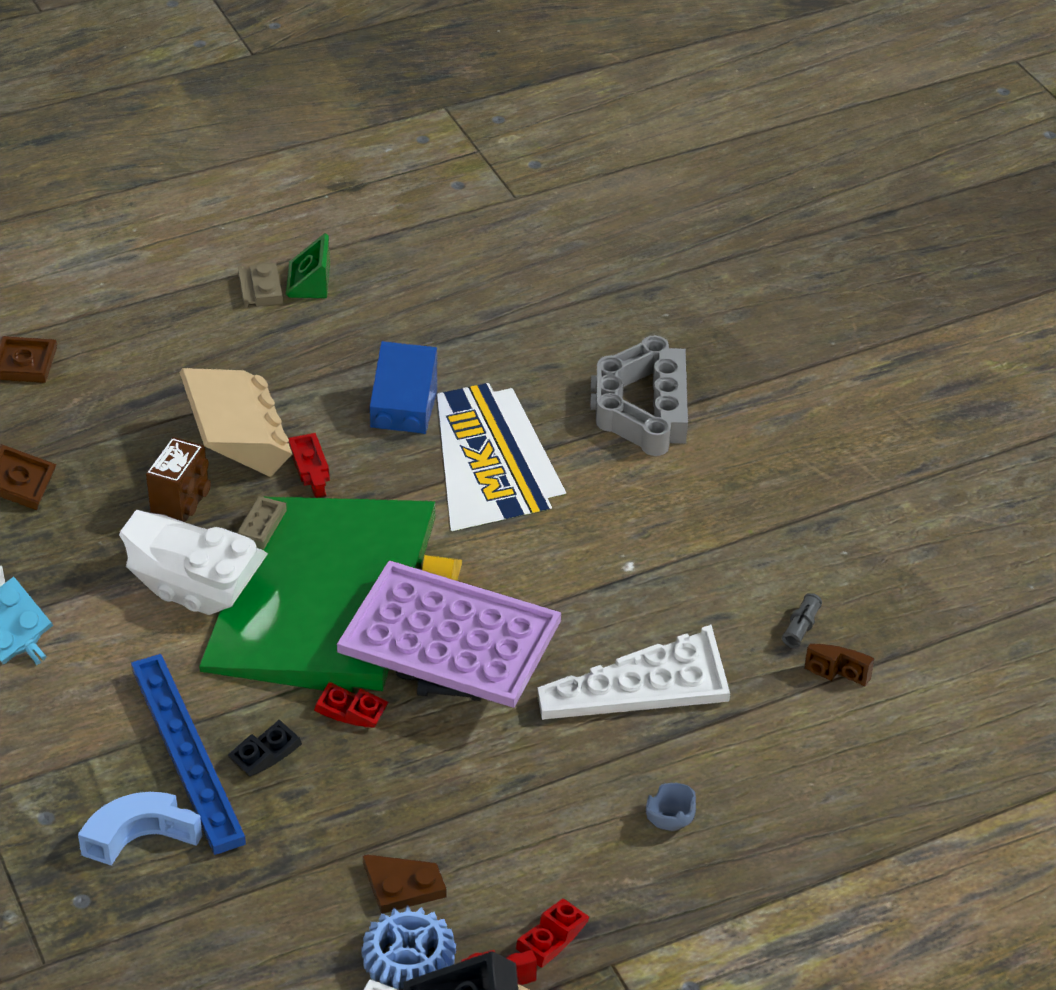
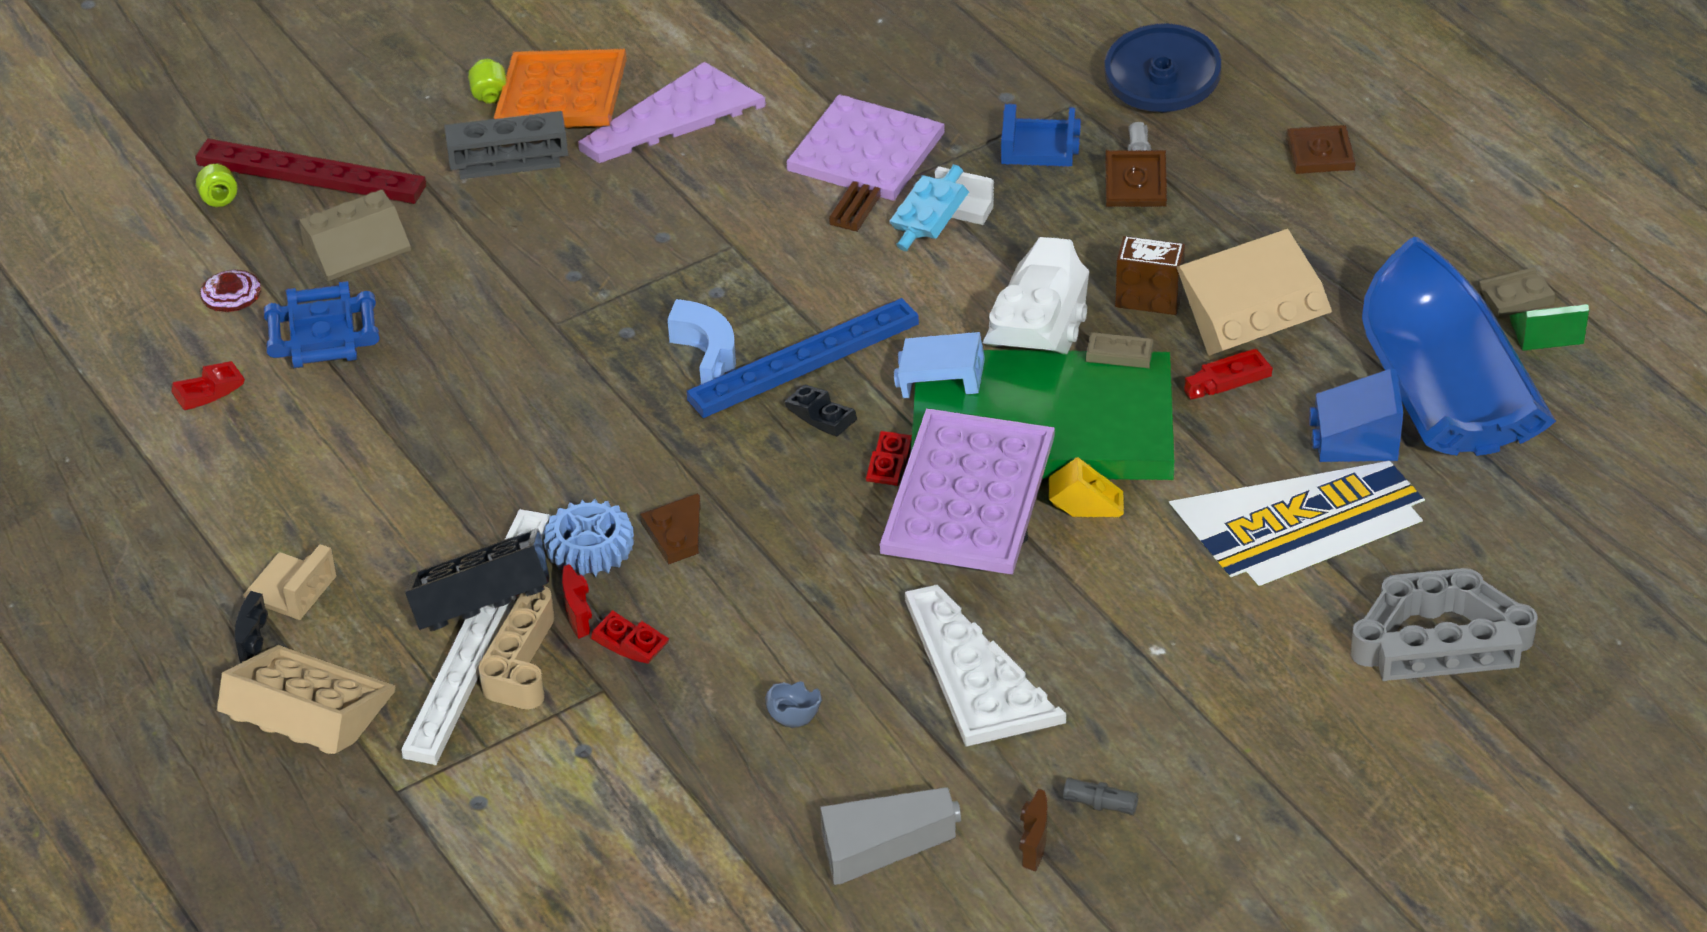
camera: 85 degrees right, 0 degrees up
(246, 641) = (941, 359): none -> light blue panel
(343, 324) = (1449, 356): none -> blue panel
(833, 767) = (885, 830): none -> light grey slope

